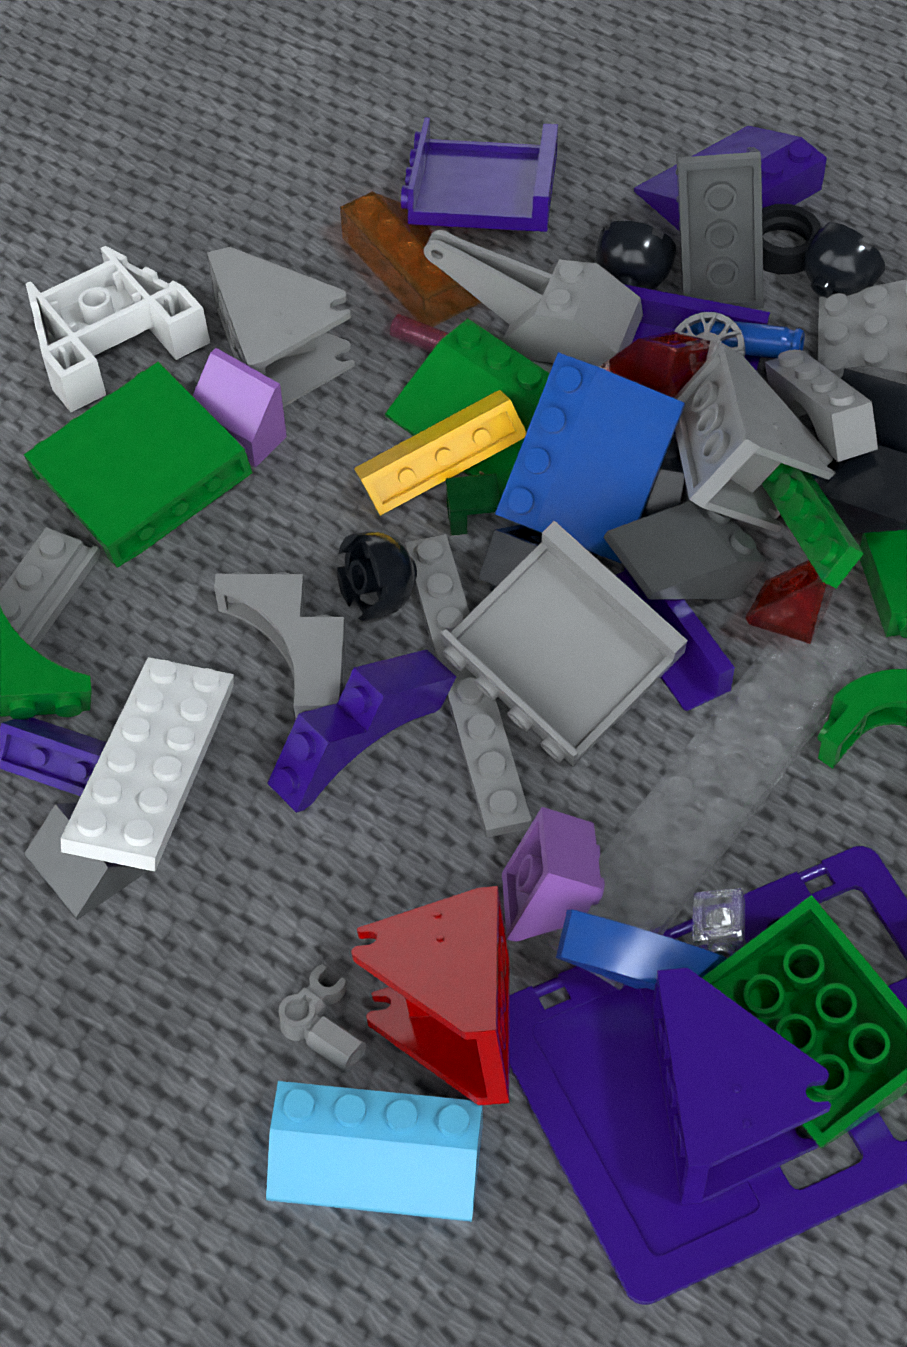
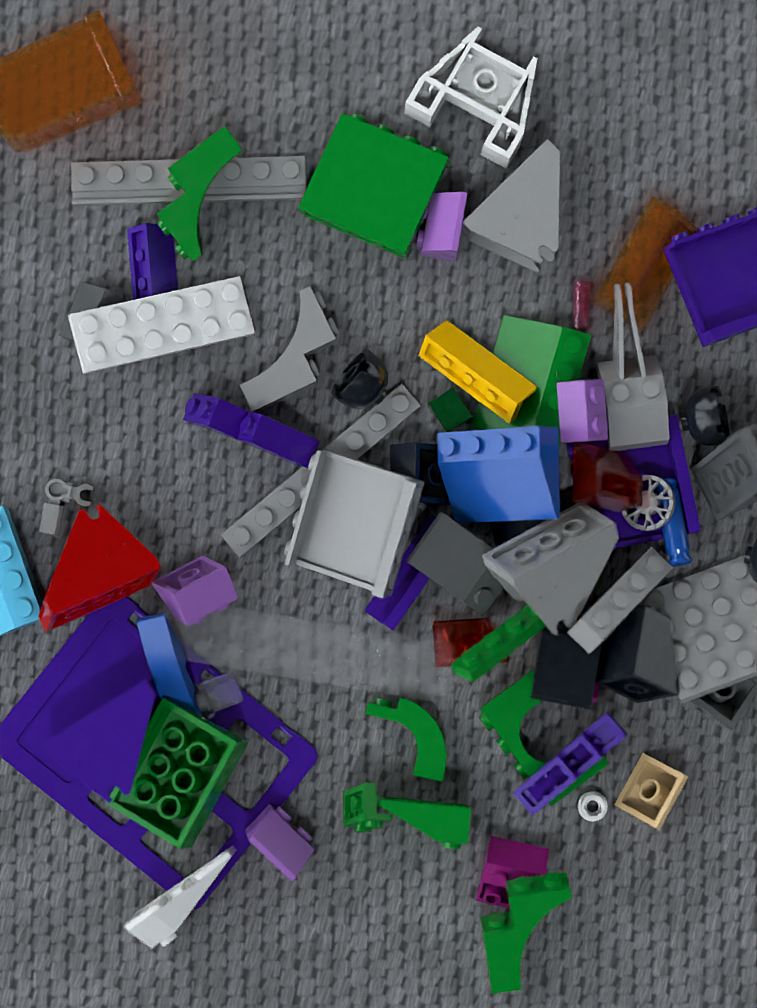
camera: 65 degrees right, 30 degrees up
(546, 332) = (582, 411): none -> medium lavender slope

